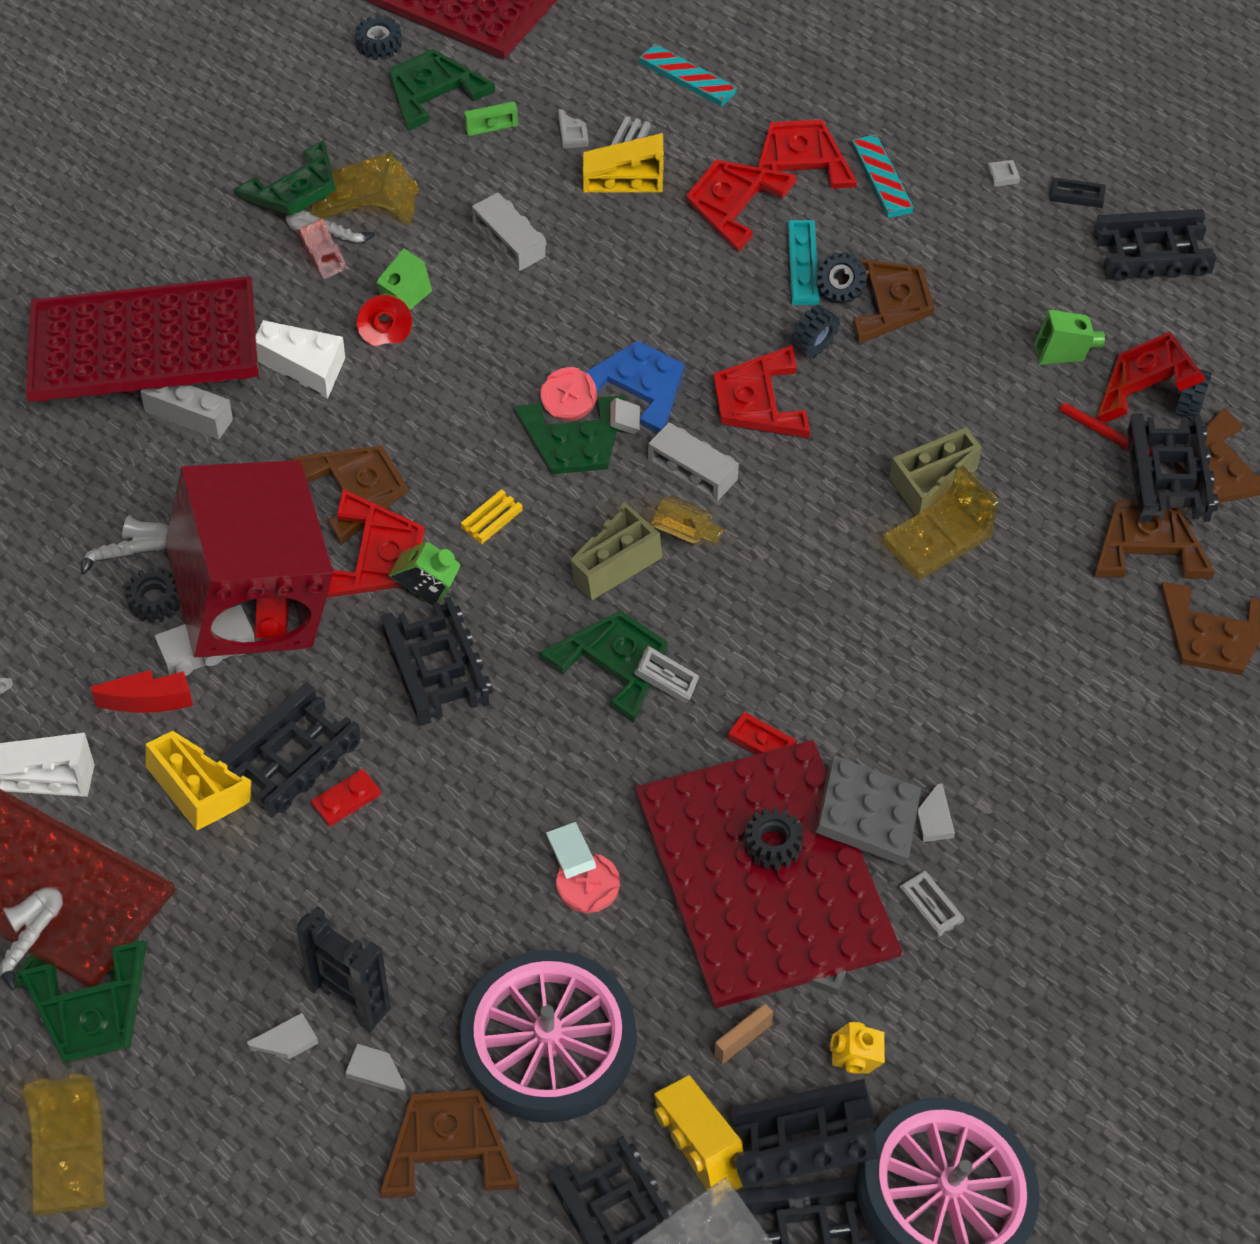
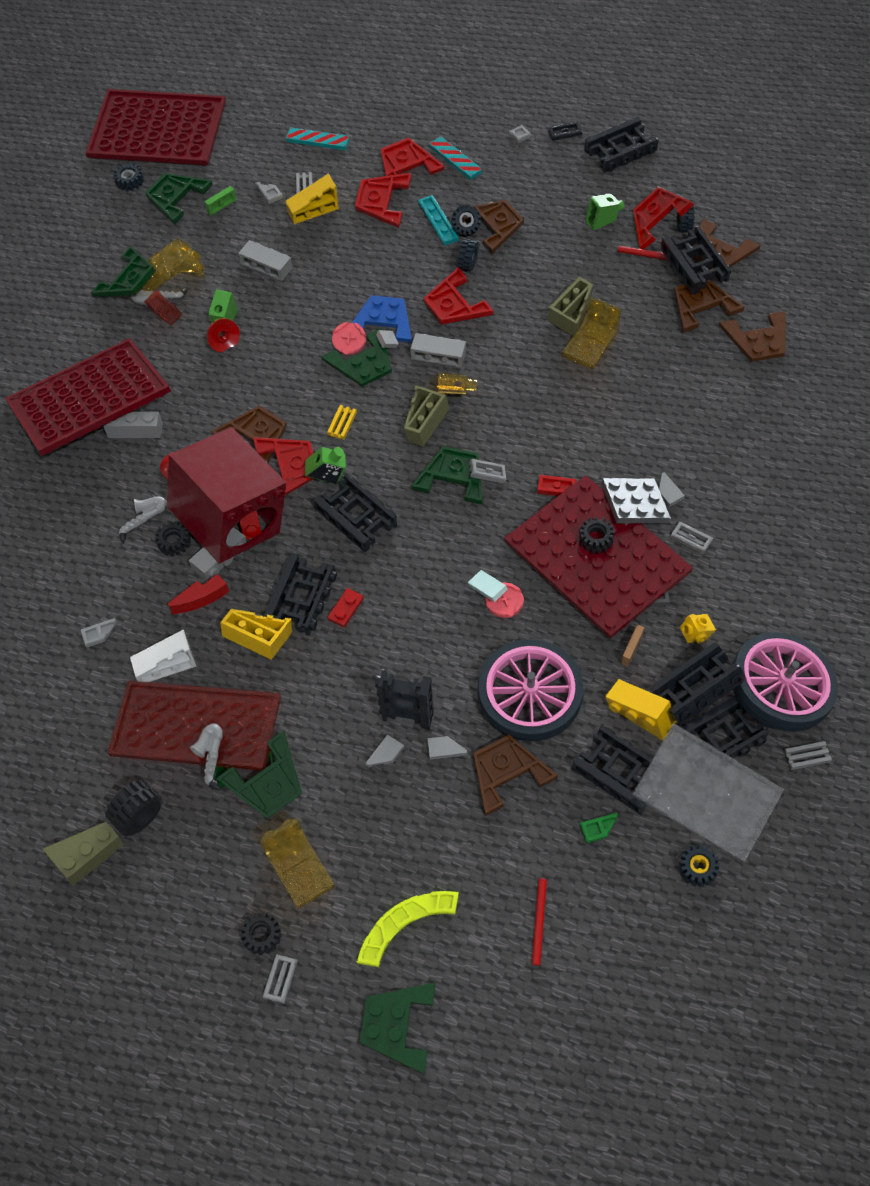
camera: 20 degrees left, 5 degrees up
(301, 354) = (185, 371): white wedge -> none

